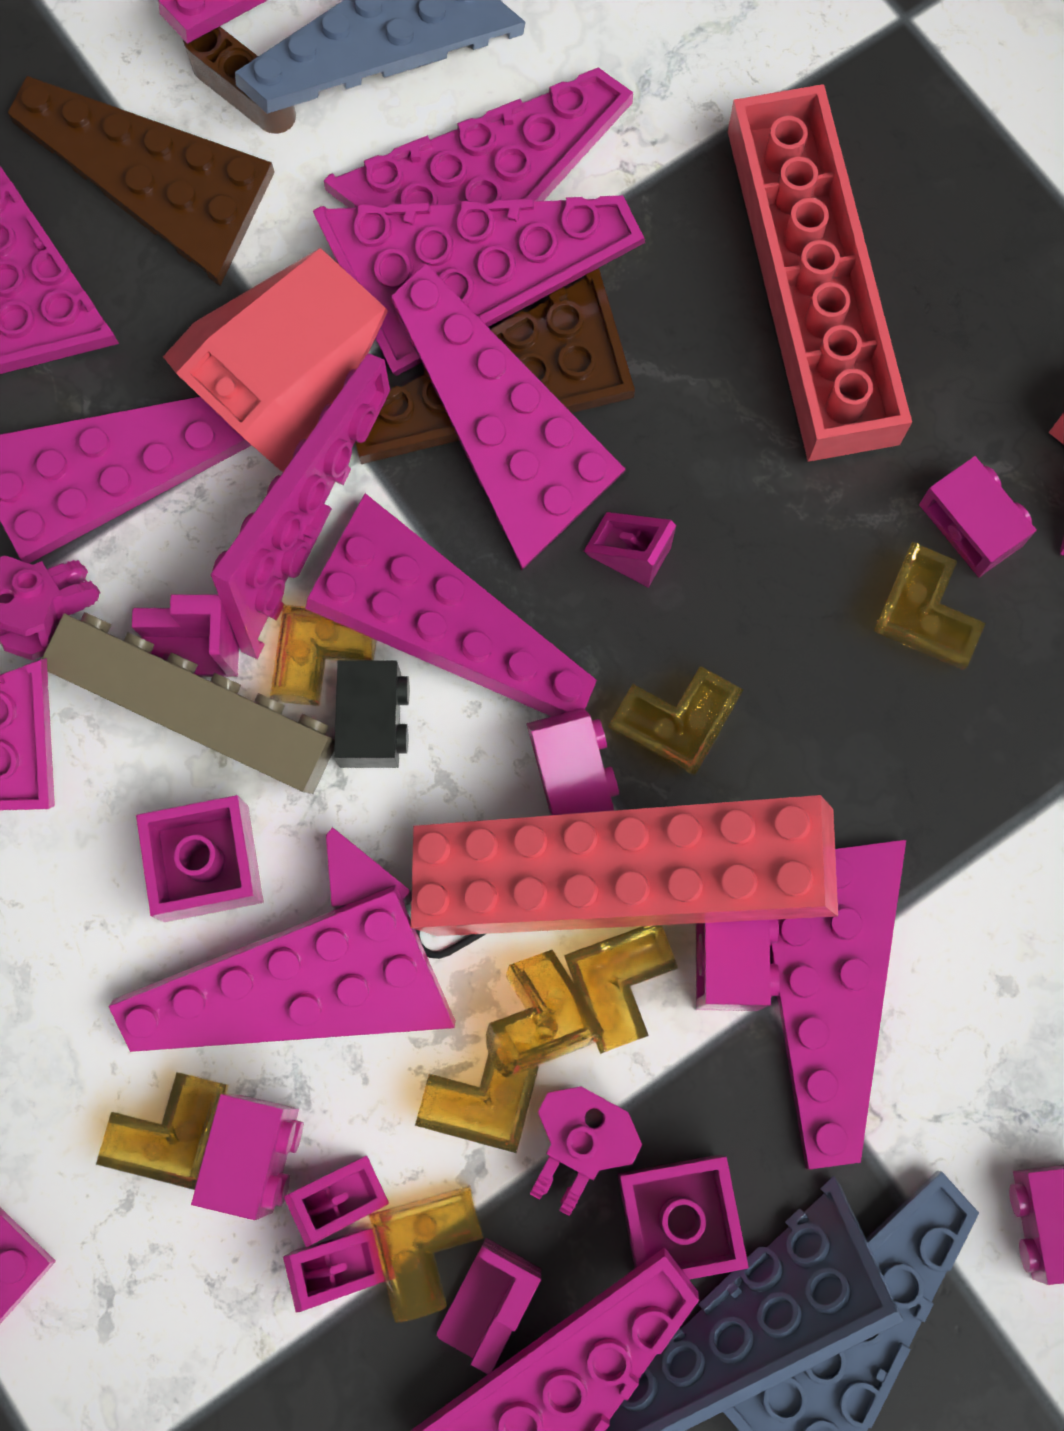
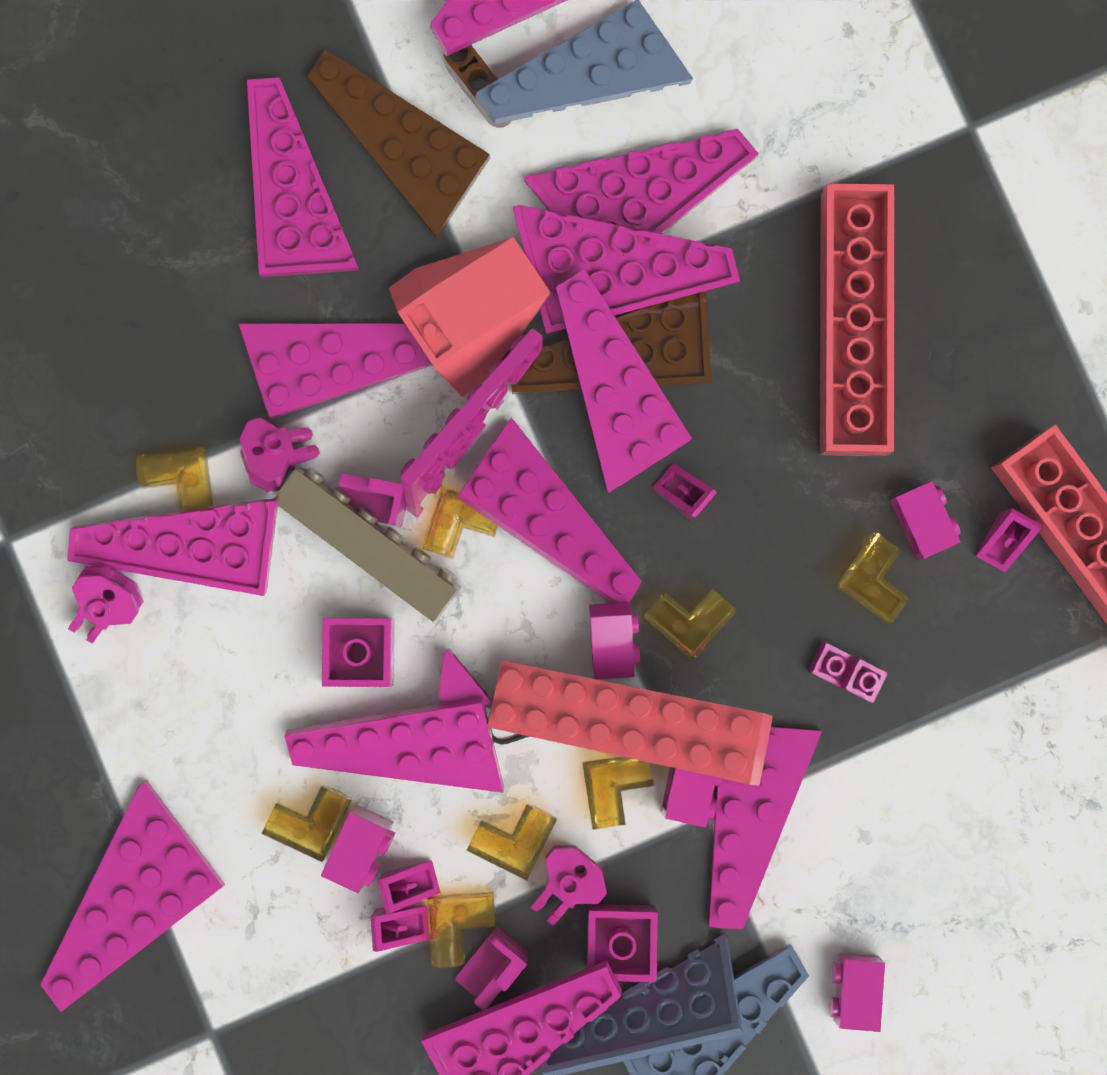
camera: 10 degrees right, 10 degrees up
(369, 714) = (486, 575): pearl dark grey brick -> none
(553, 1019) = (566, 806): clear yellow brick -> none
(921, 750) = (847, 672): none -> dark pink slope

